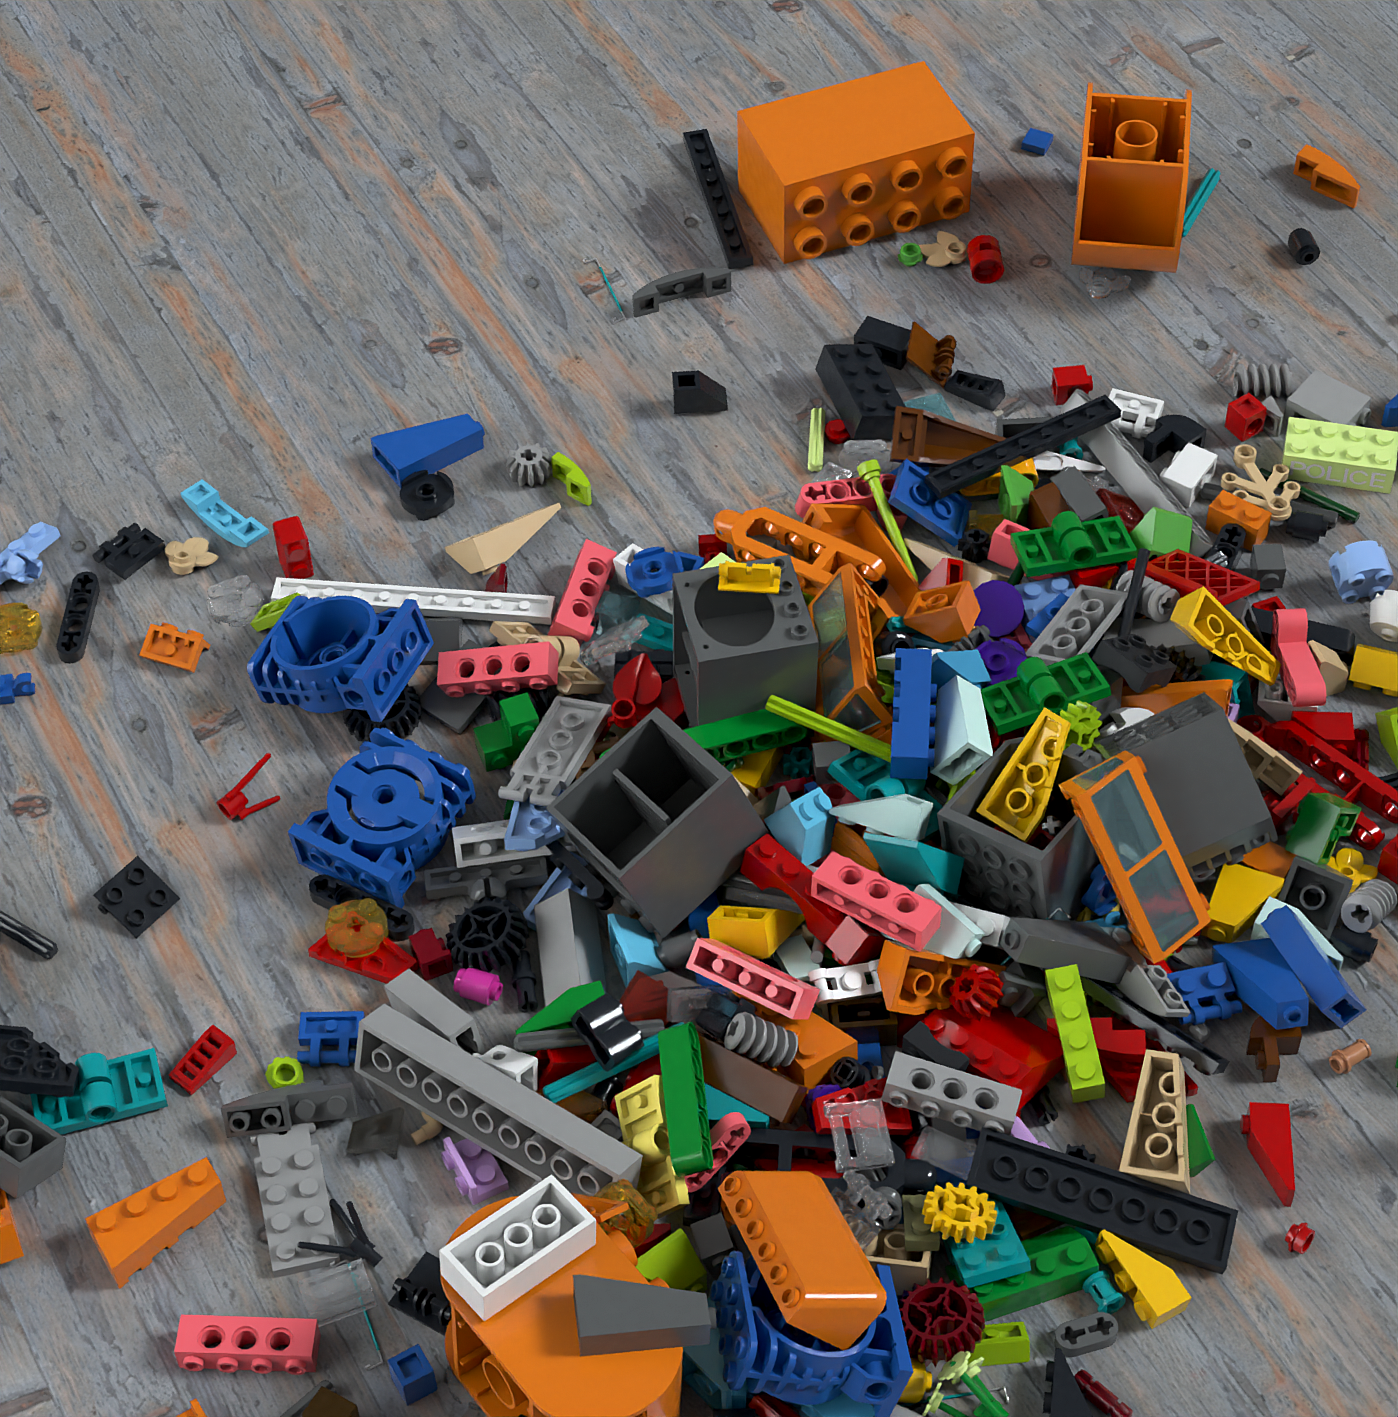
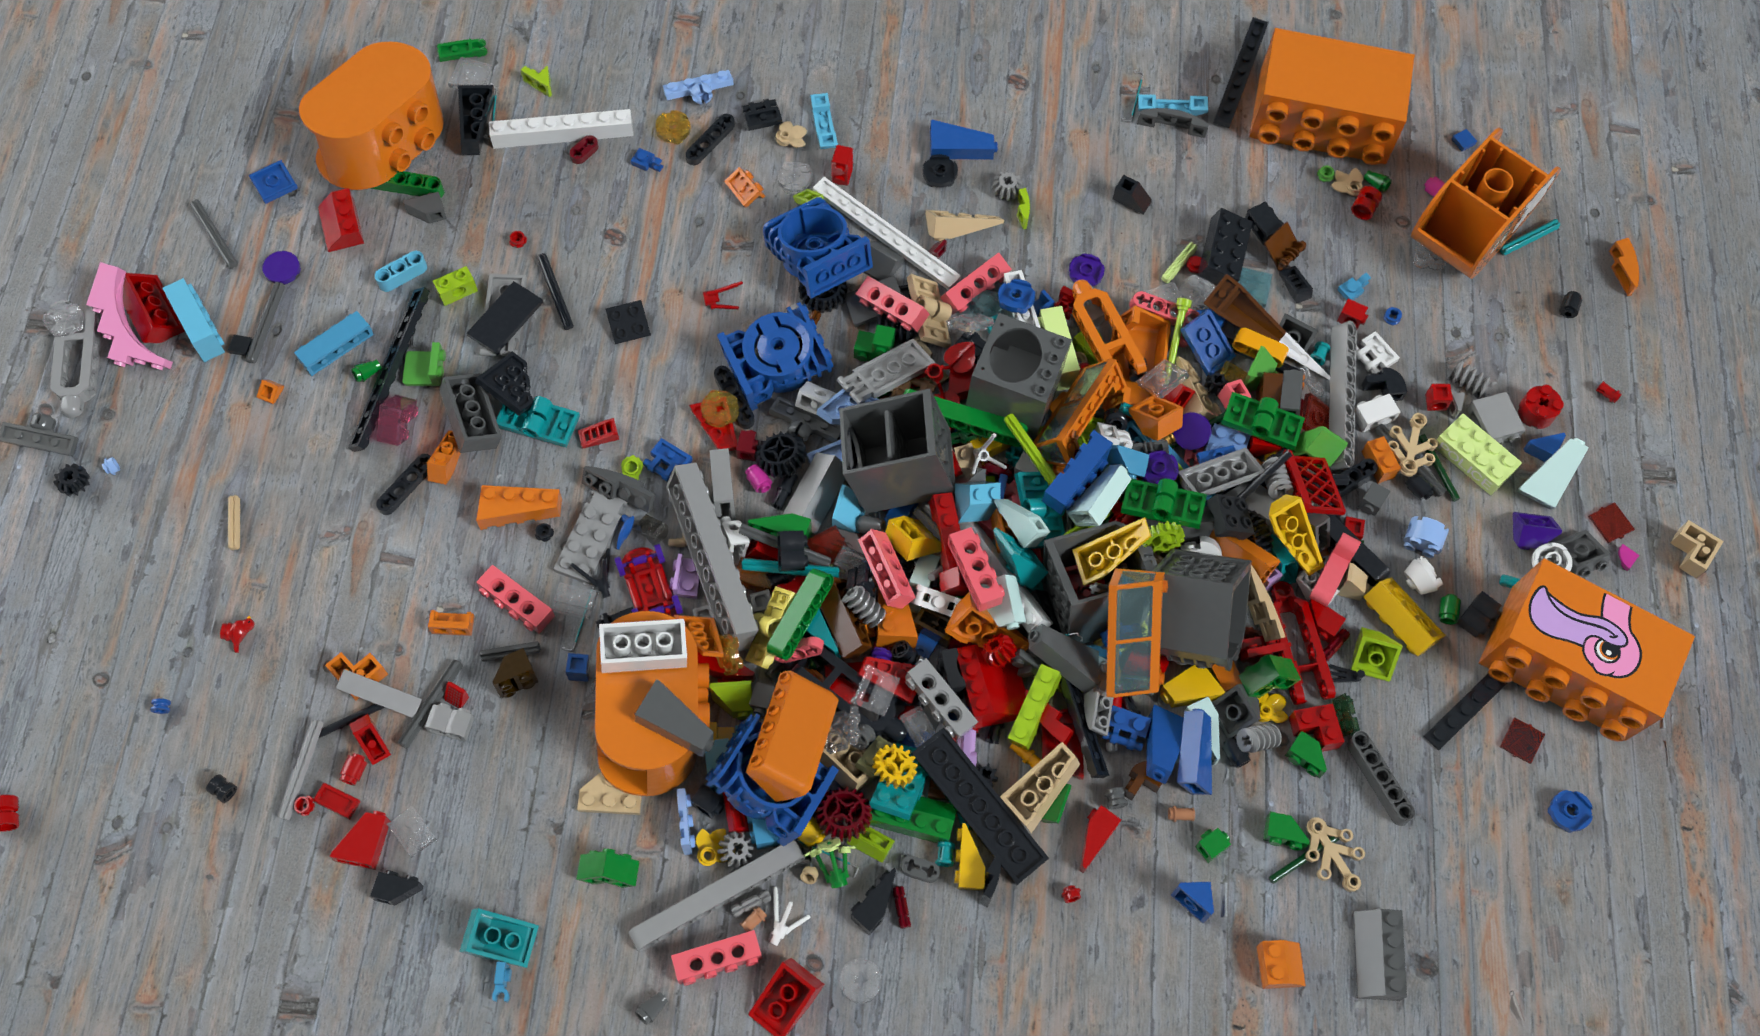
camera: 30 degrees right, 15 degrees up
(217, 1226) = (543, 527): none -> black plate
(339, 1154) = (625, 530): none -> blue bar
(418, 1200) = (648, 581): none -> red piece
(691, 257) = (1196, 105): none -> medium azure slope
(703, 504) = (1087, 268): none -> dark purple tile
(755, 579) = (1035, 342): yellow hinge -> none
(762, 777) = (983, 455): none -> white plant
(913, 568) = (1163, 378): none -> clear plate
(976, 228) = (1378, 180): none -> green cone
(1022, 446) = (1286, 340): black tile -> none
(1045, 358) = (1352, 288): none -> dark azure plate
(1052, 204) = (1433, 185): none -> dark pink brick
(1106, 1108) = (1028, 756): none -> light orange pin
(1116, 357) = (1395, 311): none -> blue bush
(1196, 1279) = (991, 878): none -> black slope
(1257, 1086) = (1116, 798): none -> dark grey wheel
(1365, 365) = (1540, 406): none -> red brick

